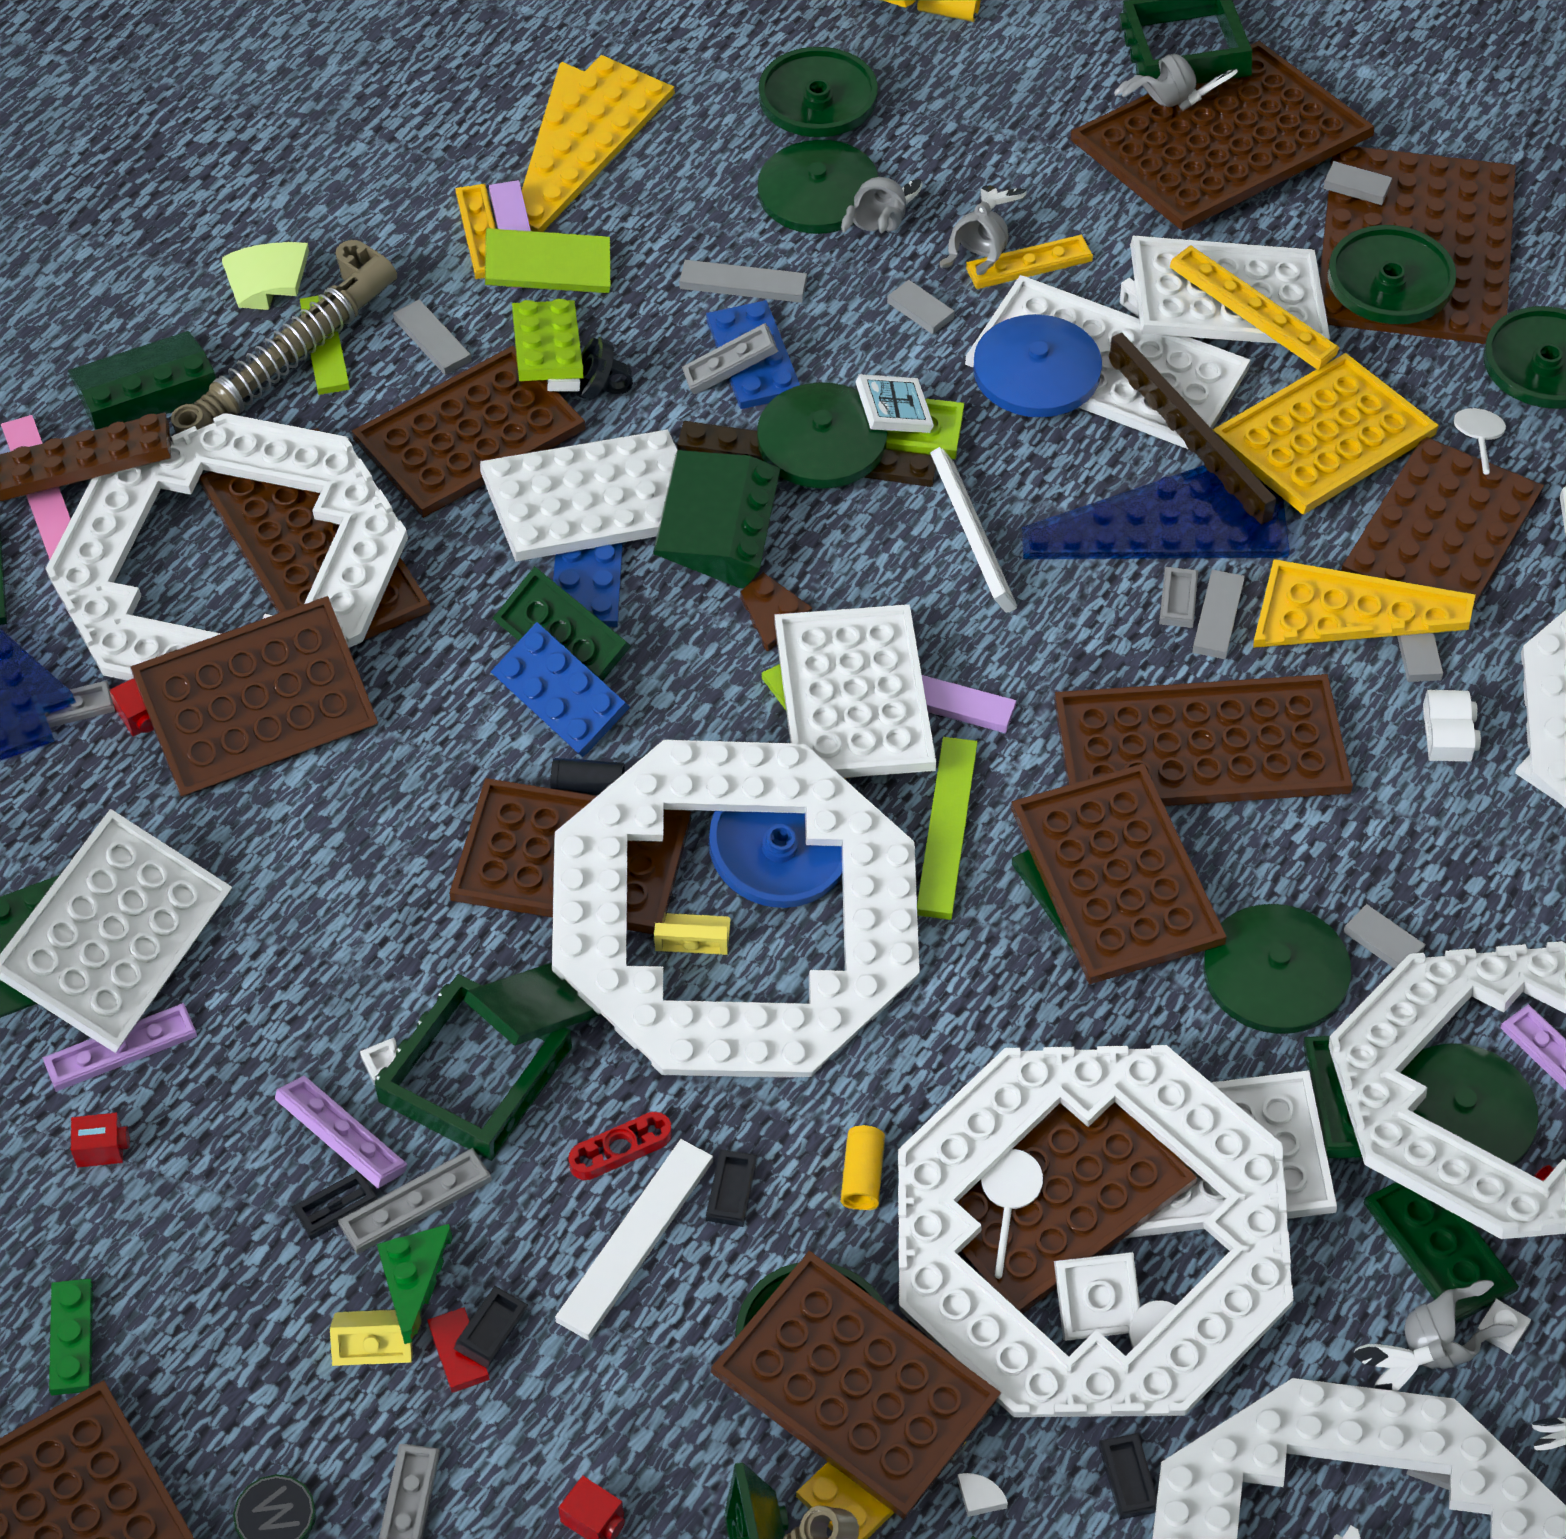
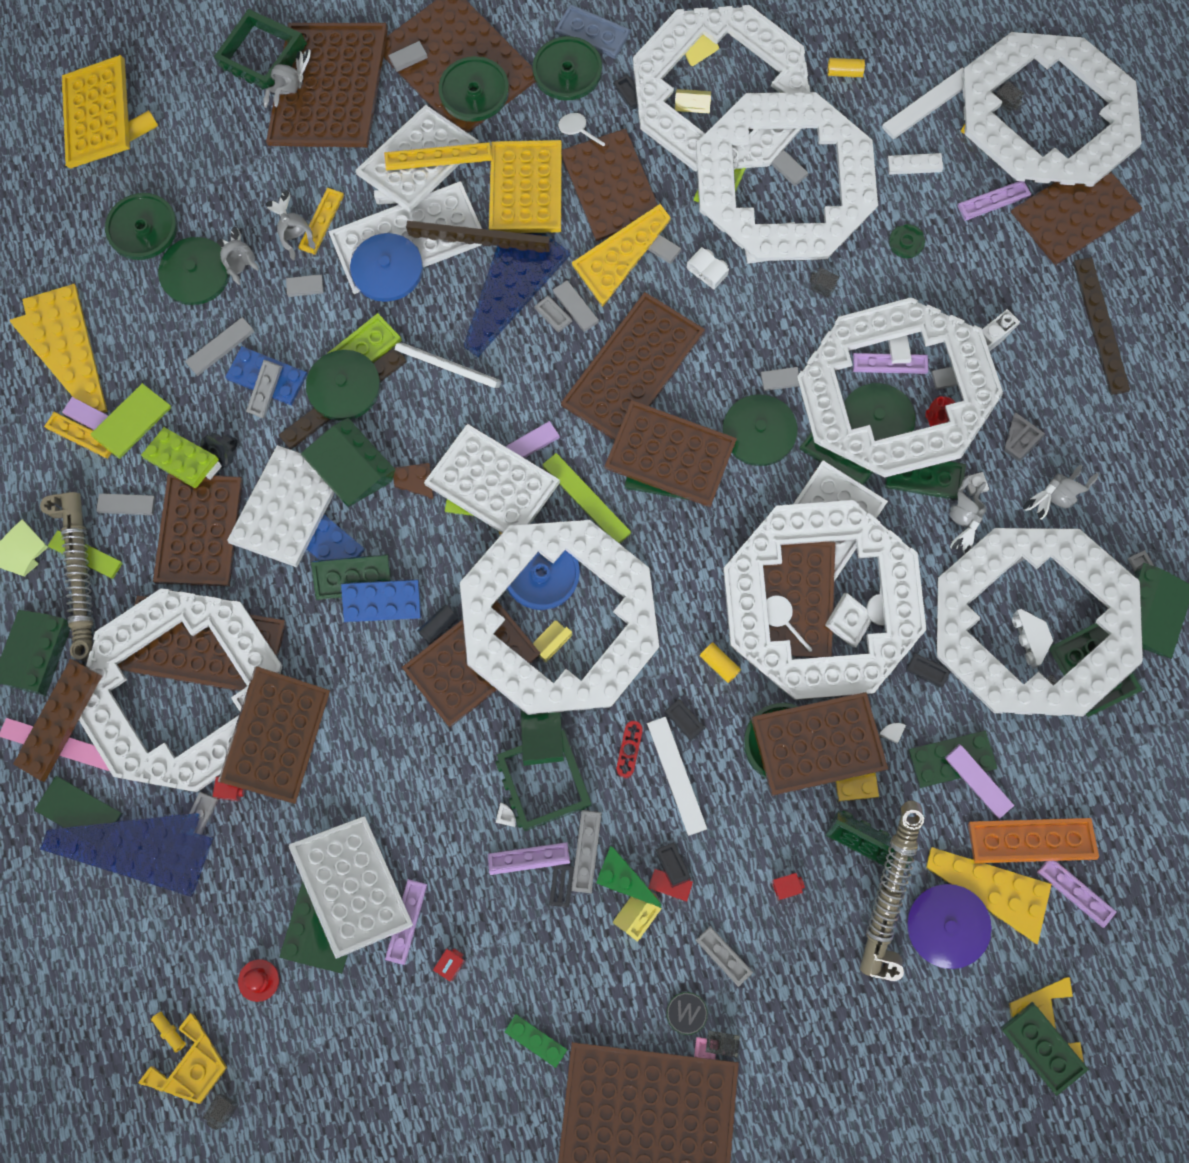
camera: 45 degrees left, 20 degrees up
(894, 403) = (356, 342): tile -> none

